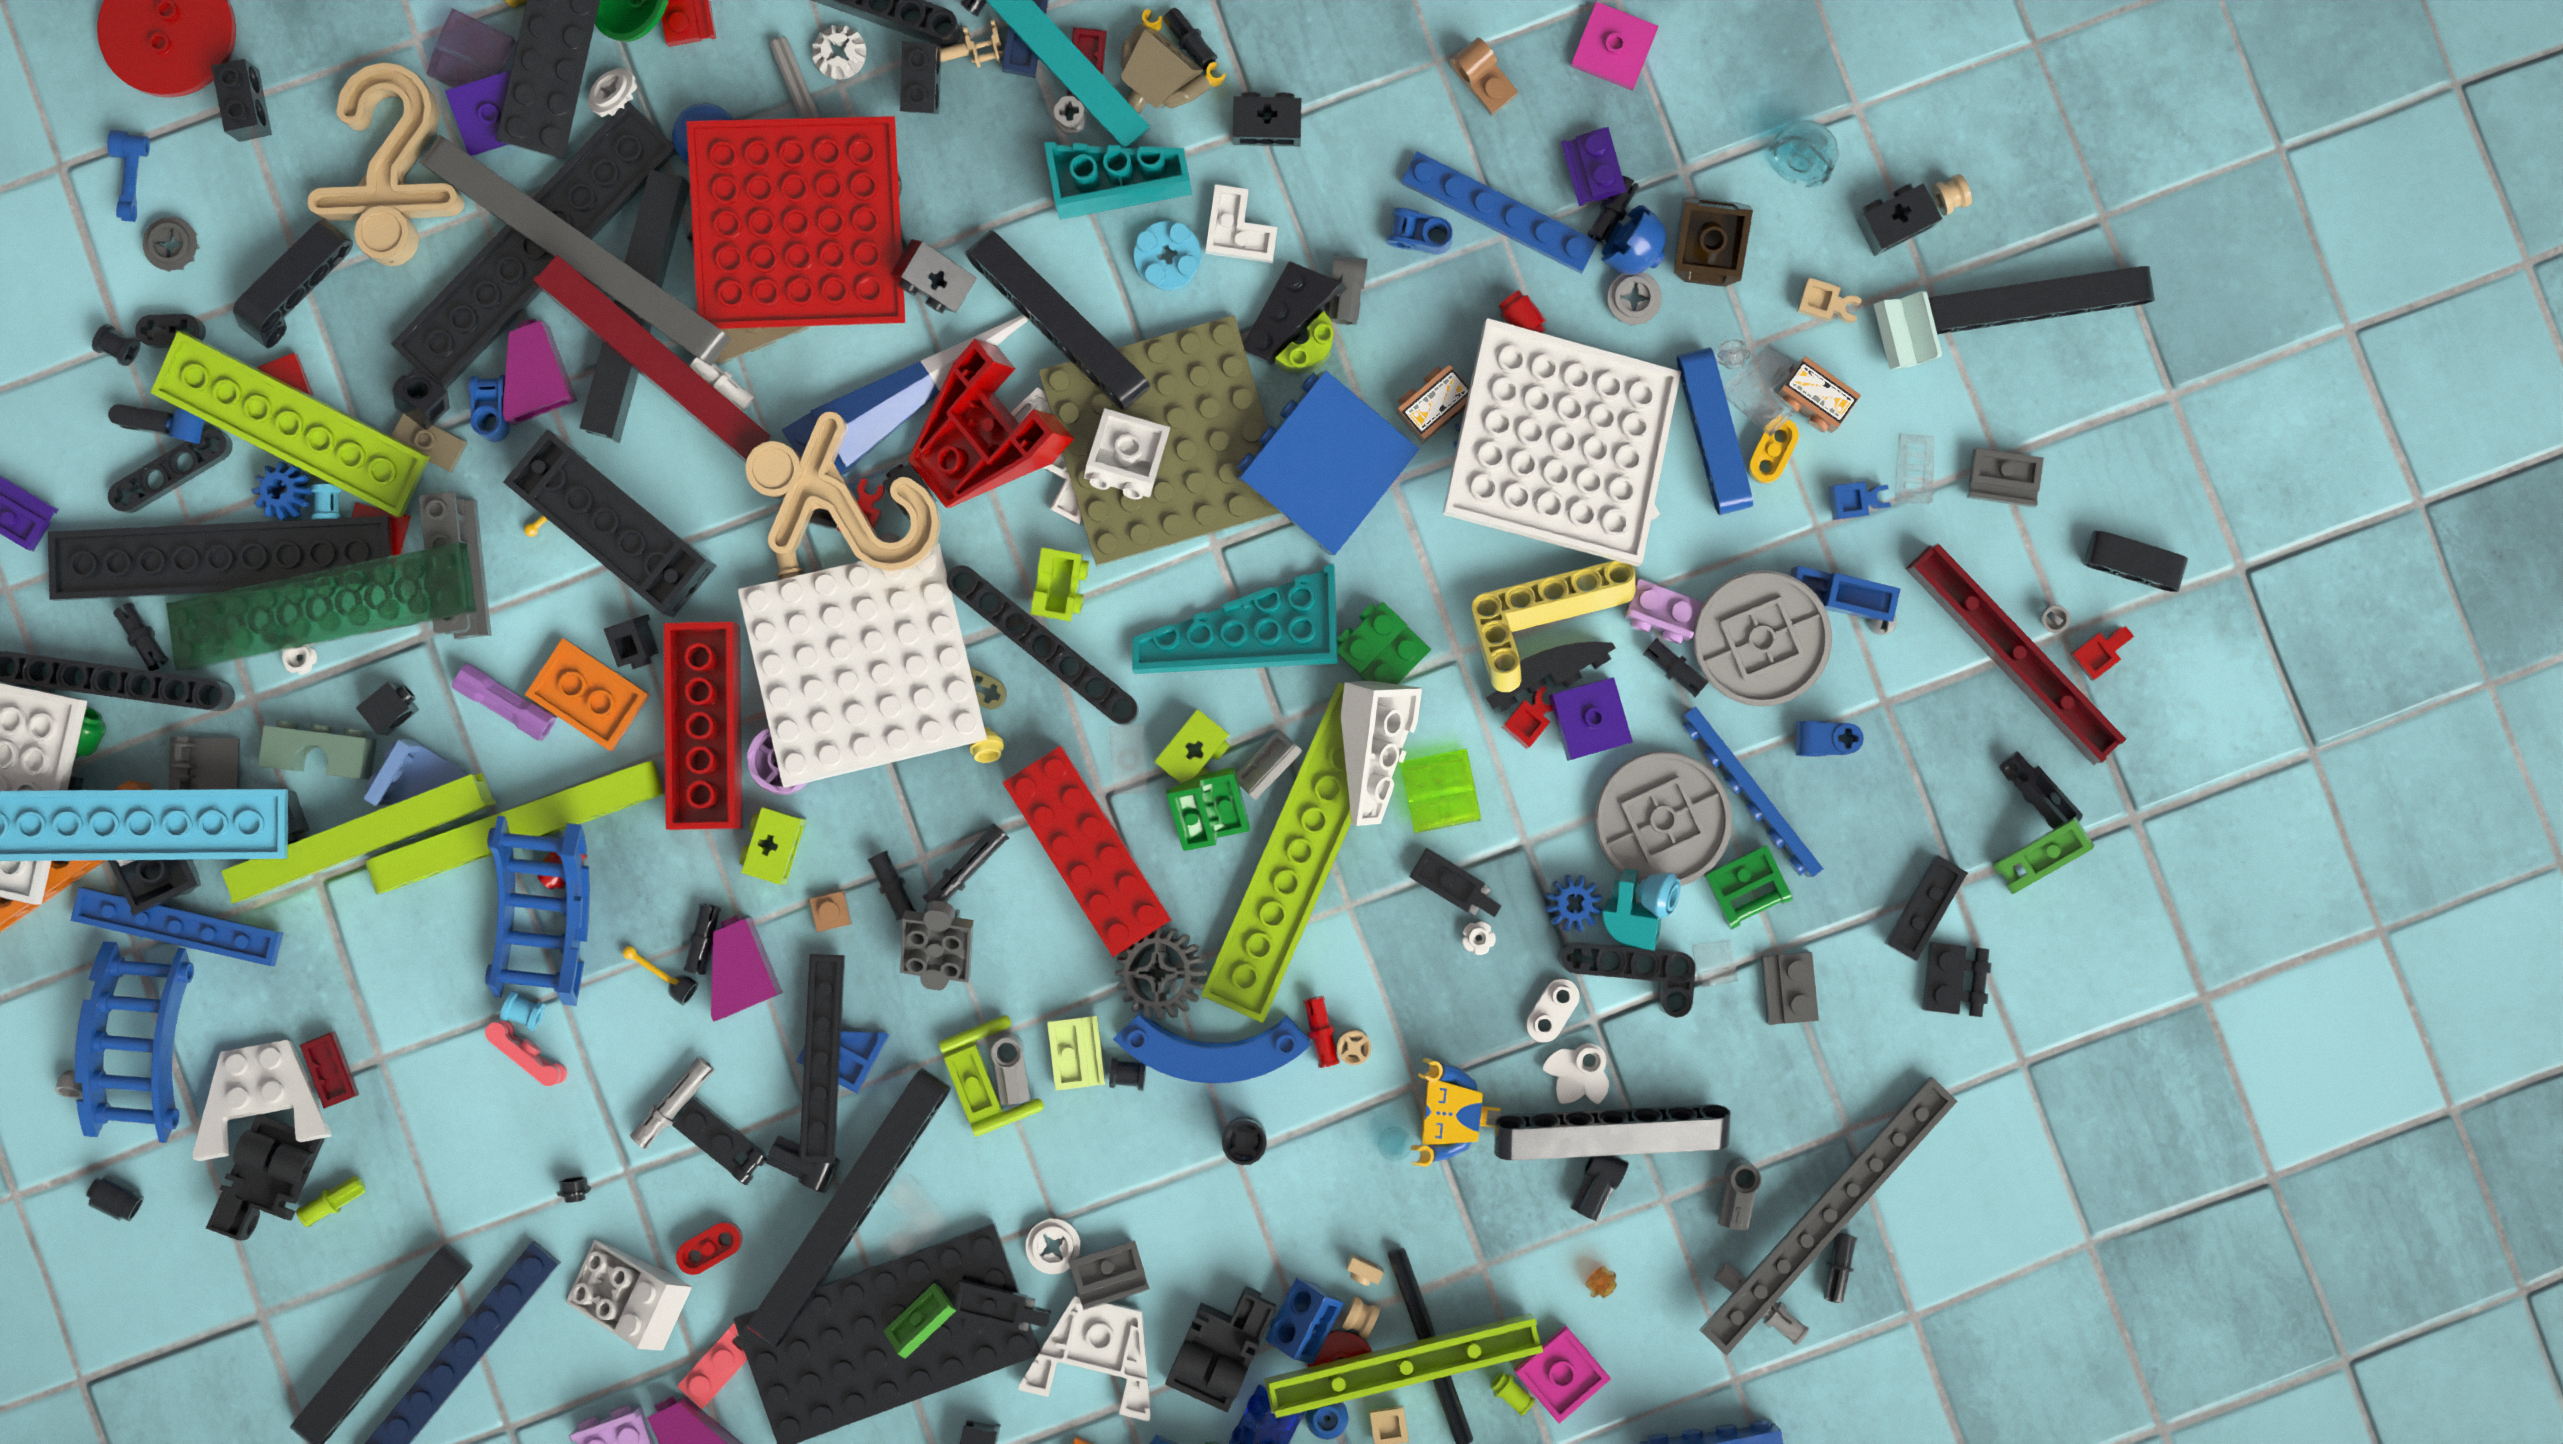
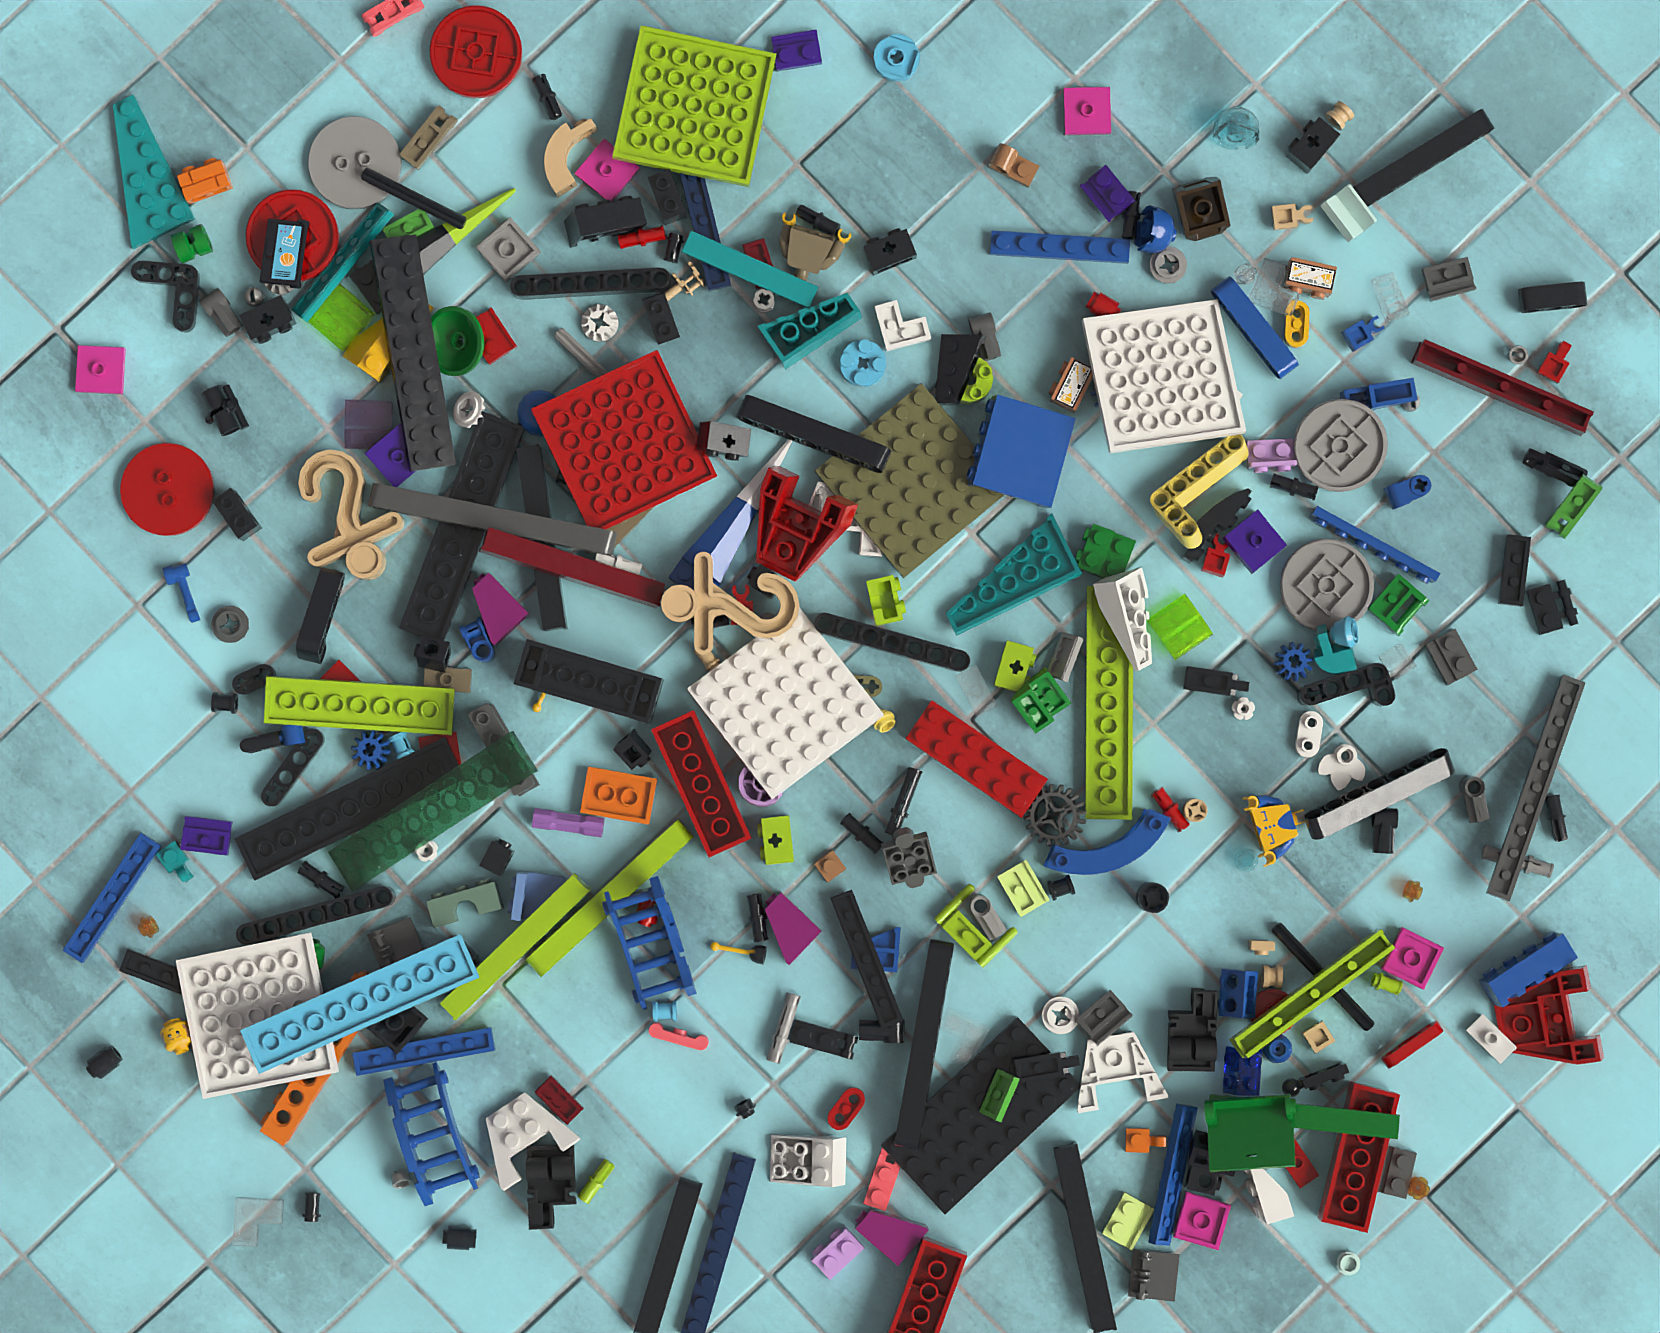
camera: 20 degrees left, 0 degrees up
(1126, 454) = (894, 500): white plate -> none
(1417, 231) = (1014, 281): blue piece -> none

